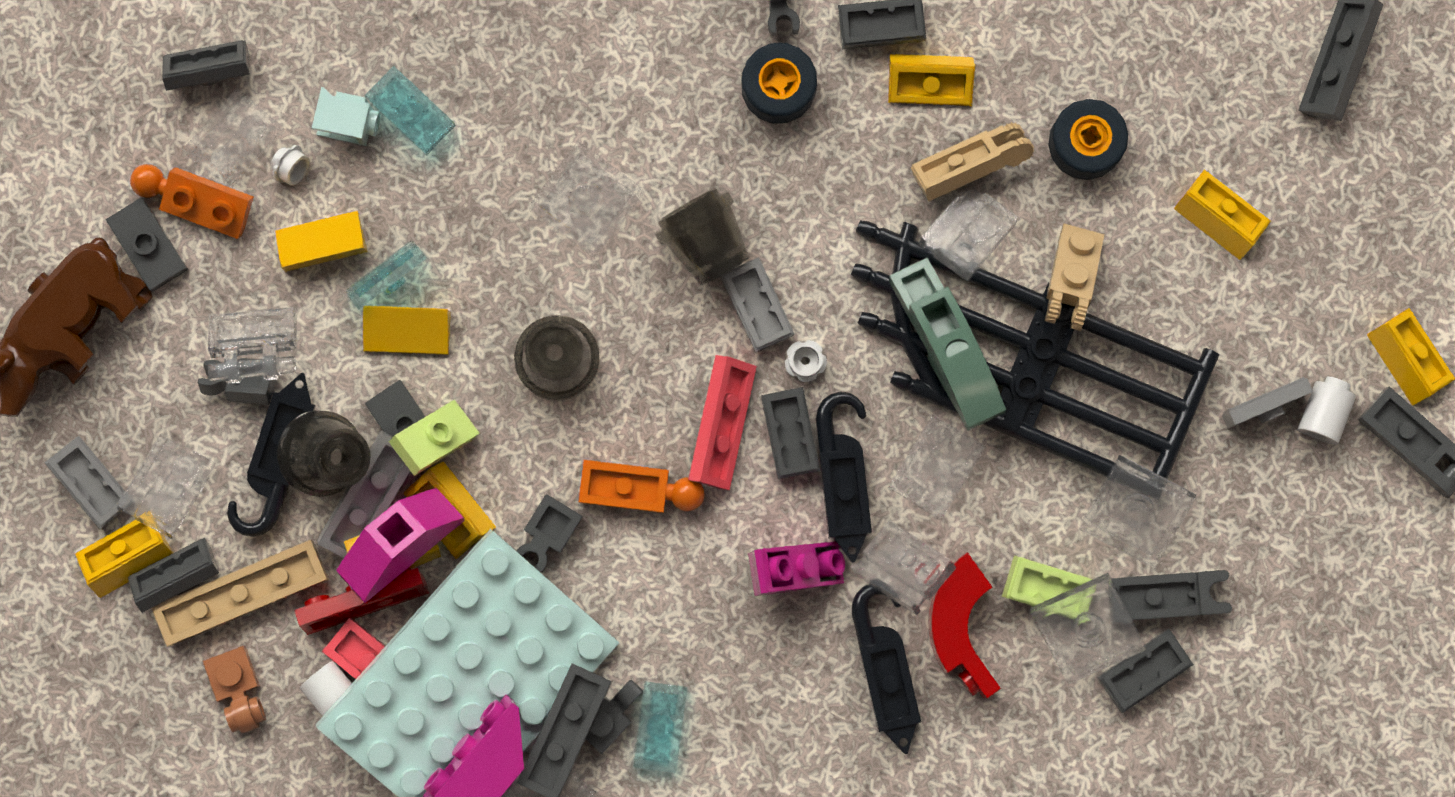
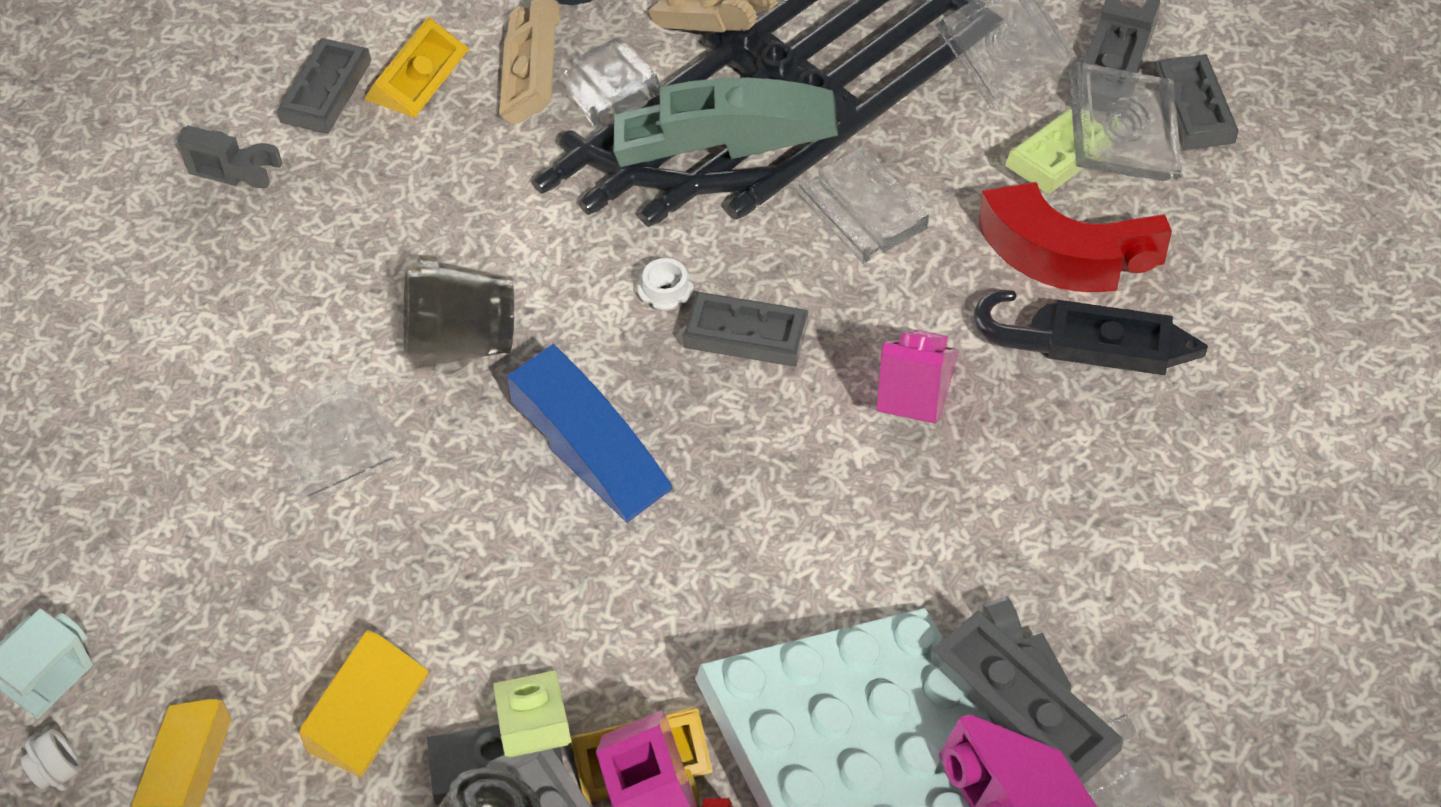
camera: 60 degrees left, 30 degrees down
(386, 276) = (278, 694): clear light blue plate -> none
(410, 110) = (87, 582): clear light blue plate -> none
(550, 527) = (726, 623): dark grey plate -> none
(559, 378) = (507, 529): clear smoke piece -> none
(636, 488) = (726, 514): orange plate -> none
(653, 371) = (587, 432): none -> blue slope
(660, 727) = (1064, 607): clear light blue plate -> none
(722, 422) = (694, 390): coral plate -> none
(757, 305) = (570, 307): light grey plate -> none
(781, 68) = (325, 192): black wheel -> none
(843, 477) = (834, 295): black plate -> none
(903, 567) = (971, 262): clear plate -> none

